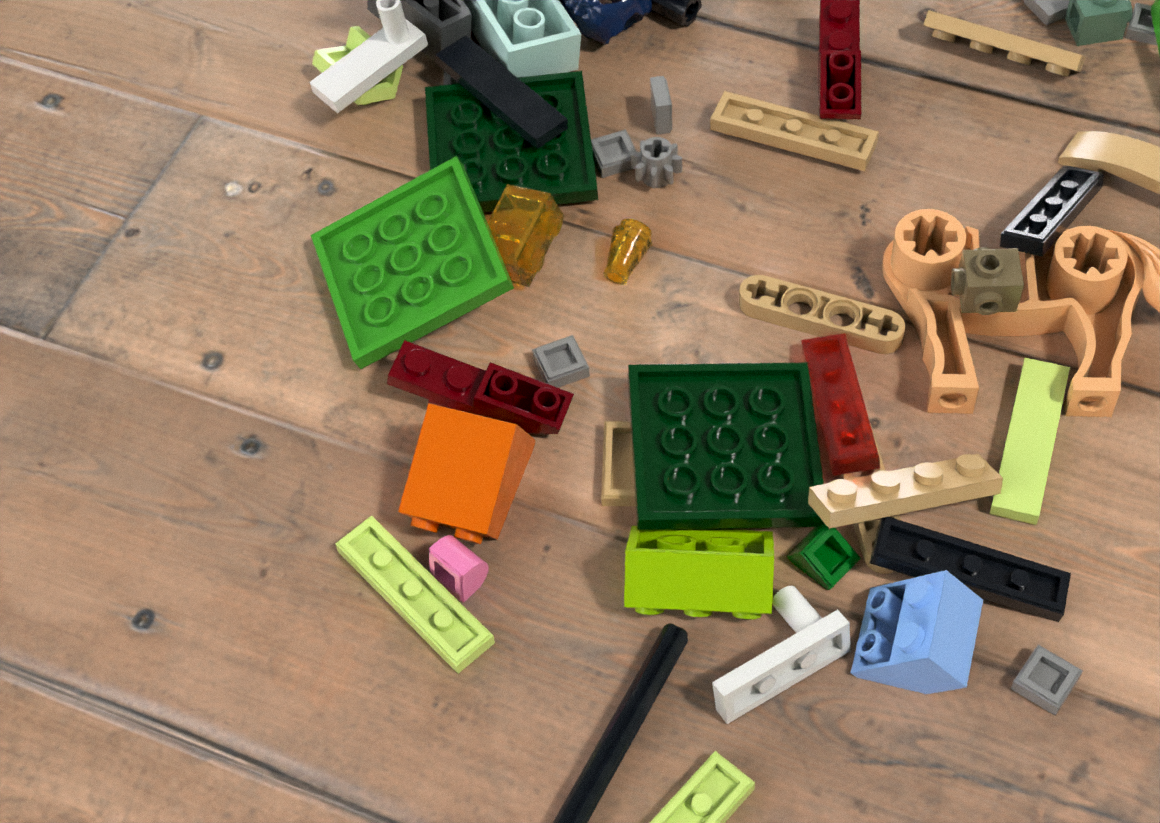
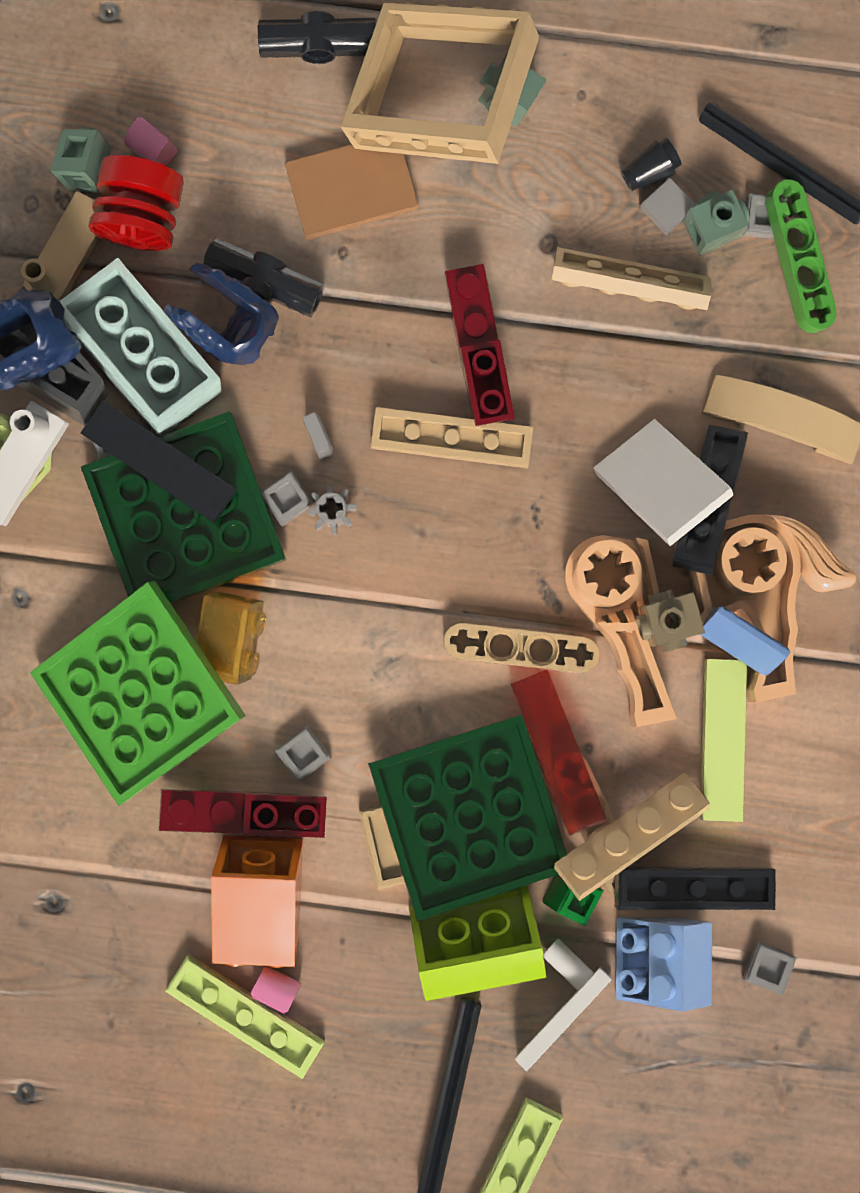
camera: 20 degrees left, 30 degrees up
(627, 248) = (330, 620): clear yellow cone -> none
(1005, 187) = (663, 482): none -> white tile
(1068, 320) = (744, 640): none -> medium blue slope

